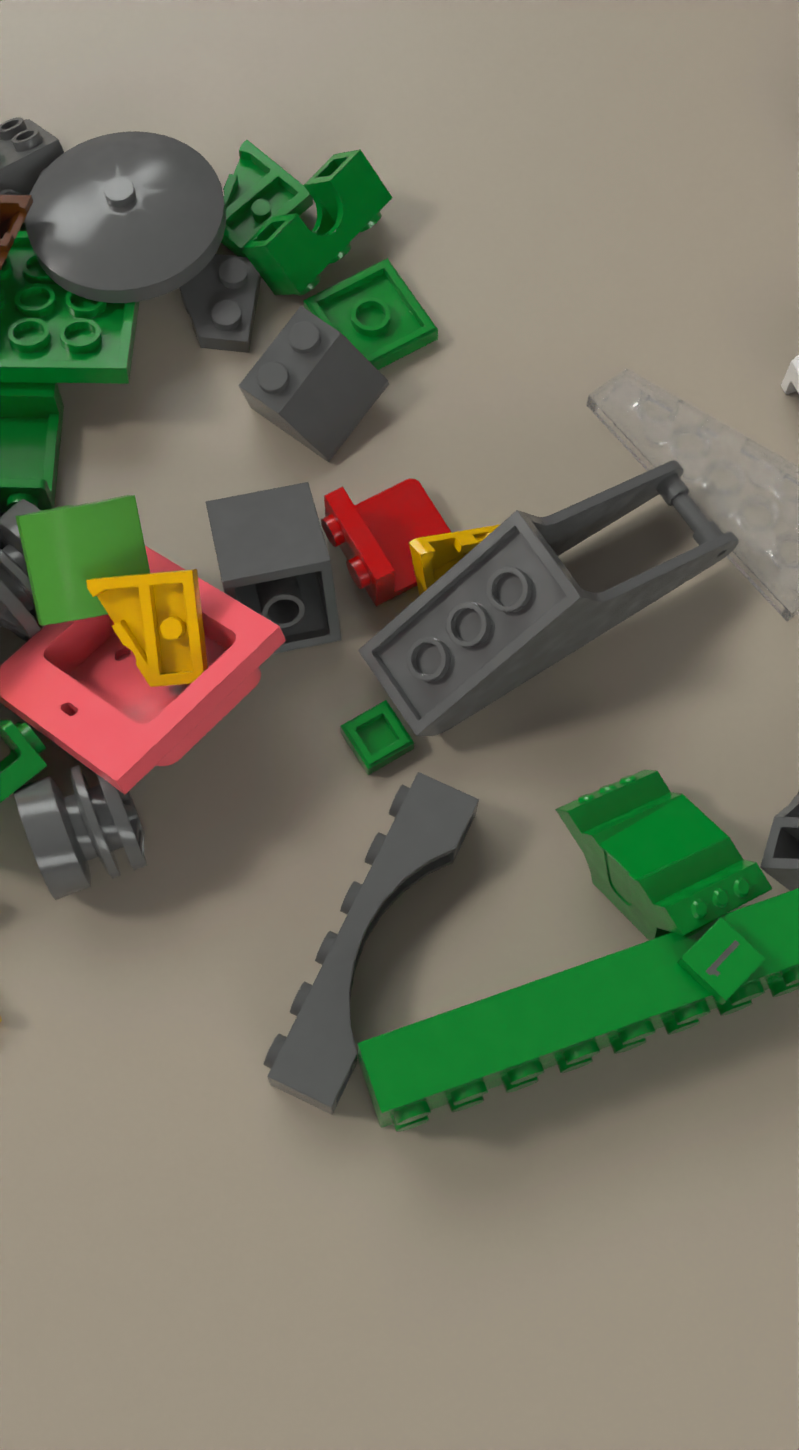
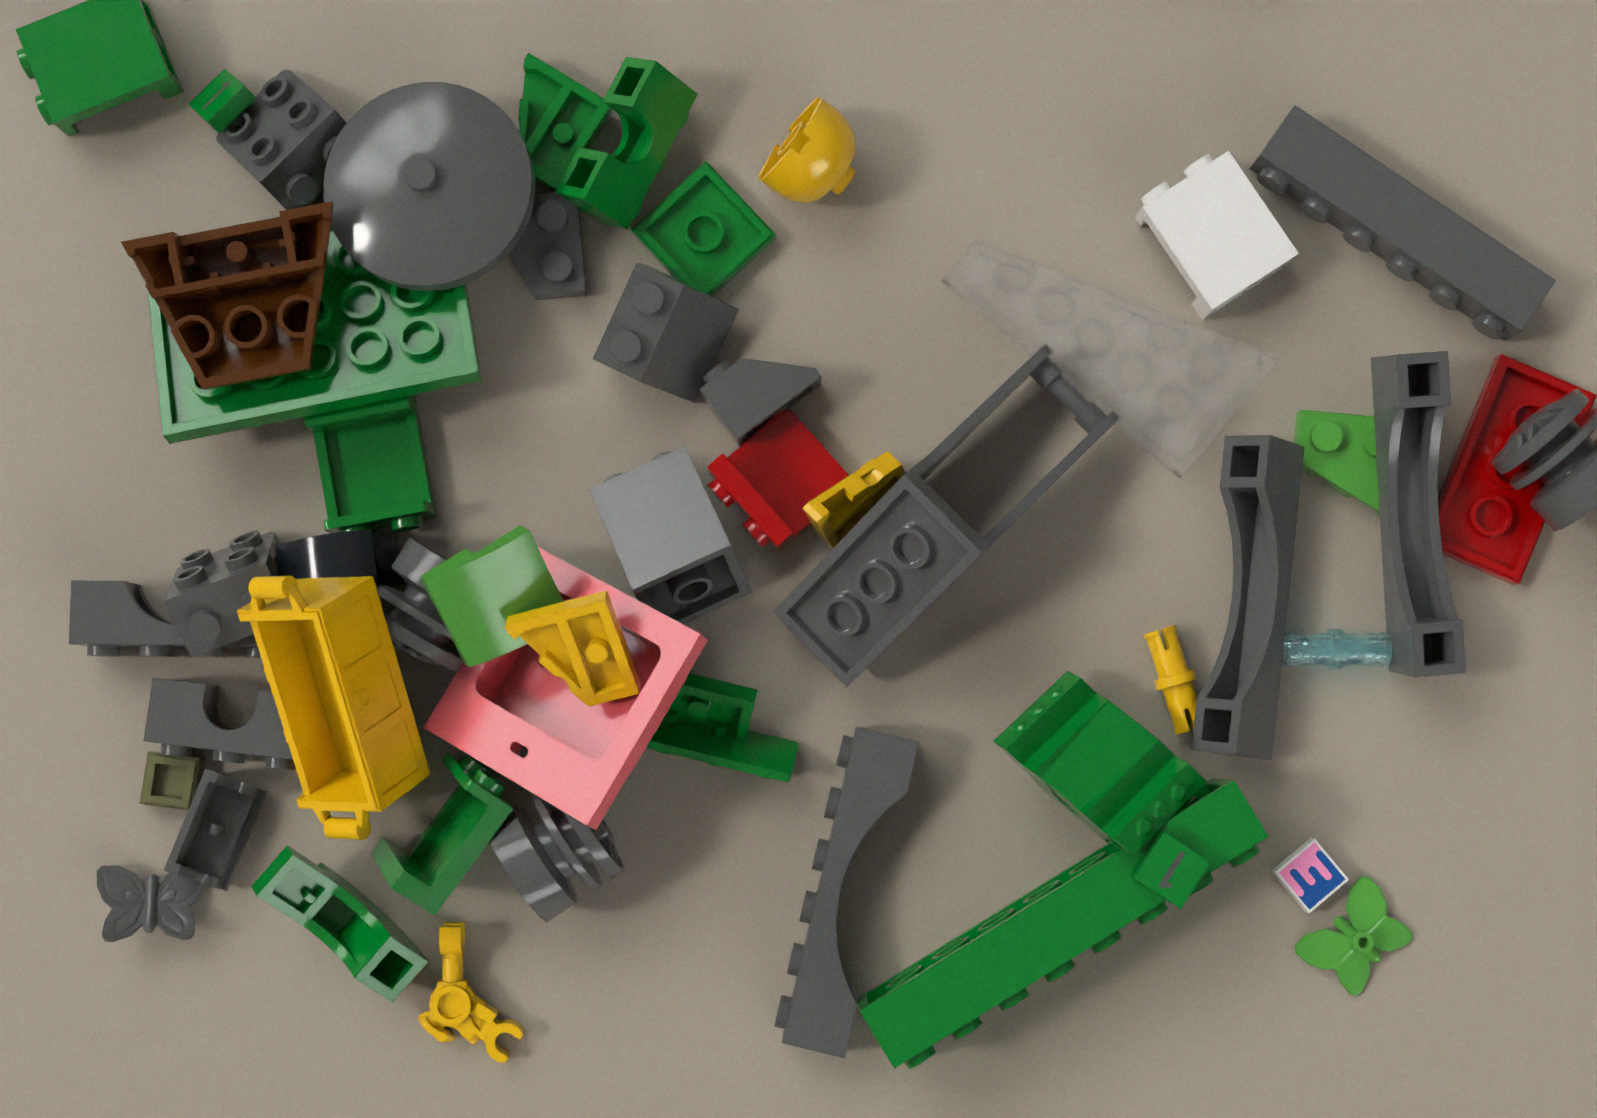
camera: 10 degrees left, 15 degrees up
(275, 748) = (712, 726): none -> green bracket
(377, 737) = (807, 686): green tile -> none
(387, 452) = (754, 392): none -> dark grey slope
(487, 265) = (812, 156): none -> yellow cylinder
(752, 800) = (1174, 677): none -> yellow pin

